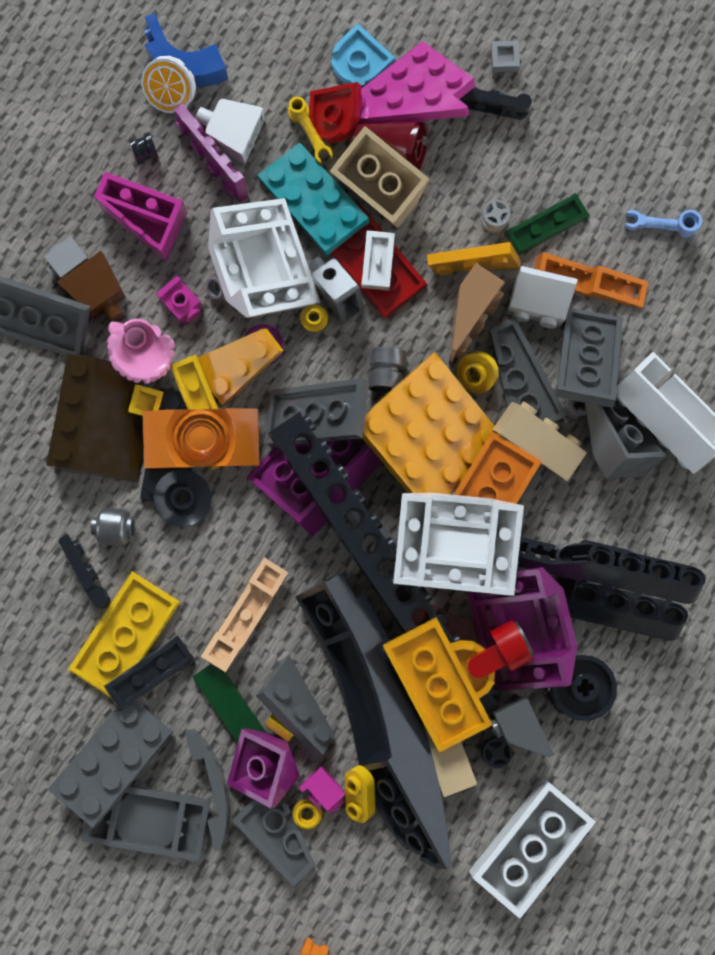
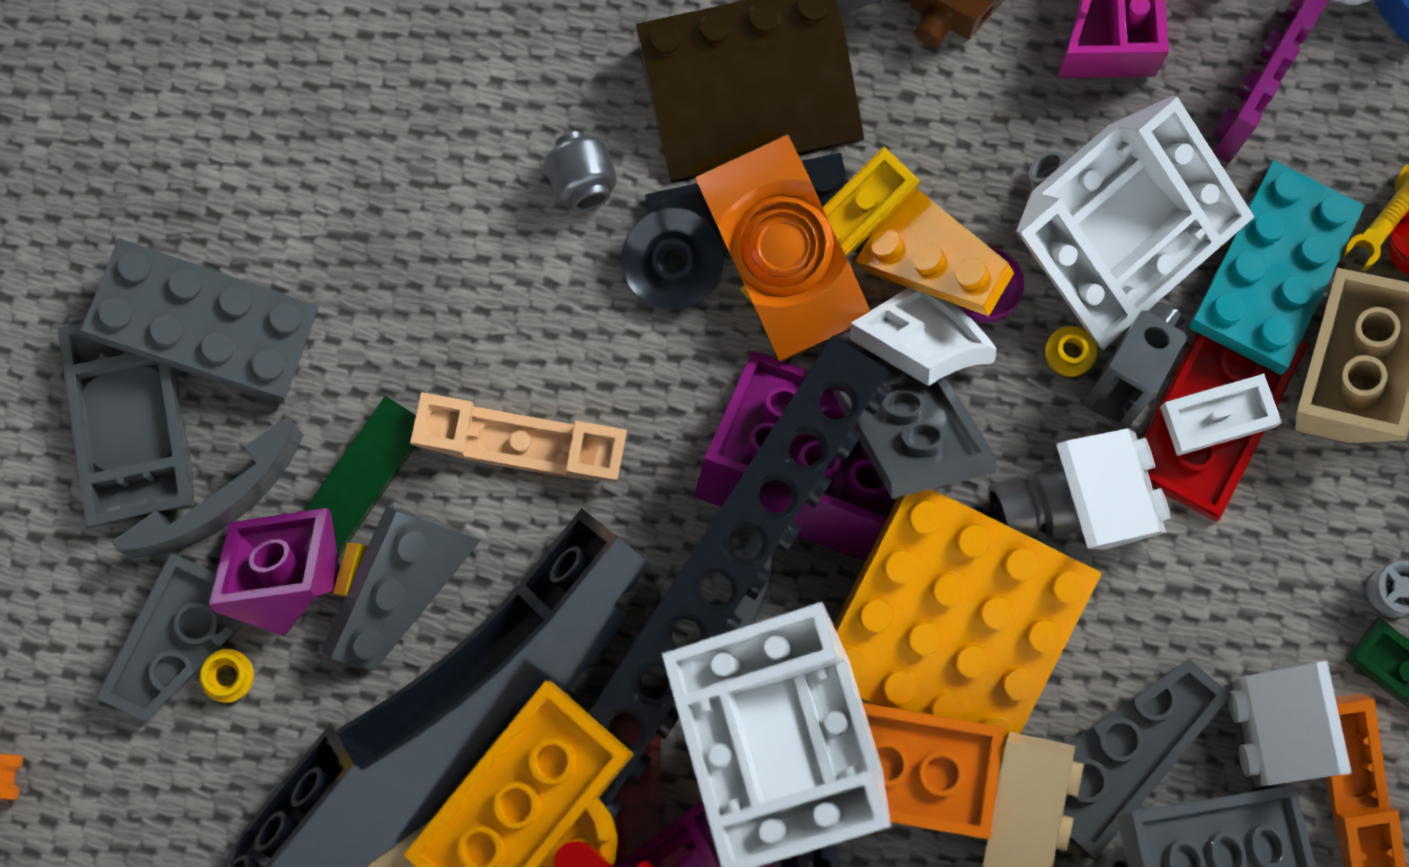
camera: 70 degrees right, 5 degrees down
(86, 574) = (487, 159): black hinge -> none
(124, 632) = (412, 263): yellow tile -> none
(139, 350) = (885, 87): bright pink hair -> none
(144, 400) = (809, 133): yellow plate -> none
(149, 673) = (364, 323): black tile -> none
(174, 291) = (1007, 105): dark pink brick -> none
(232, 127) = (1336, 86): white torso -> none
(278, 388) = (923, 336): none -> white plate
(323, 790) = (275, 687): dark pink brick -> none
(359, 794) = (287, 748): yellow plate -> none
(395, 328) = (1113, 488): none -> white slope
(476, 297) = (1230, 608): medium nougat slope -> none
(477, 372) = (1102, 667): yellow plate -> none
(489, 257) = (1307, 587): light orange wing -> none

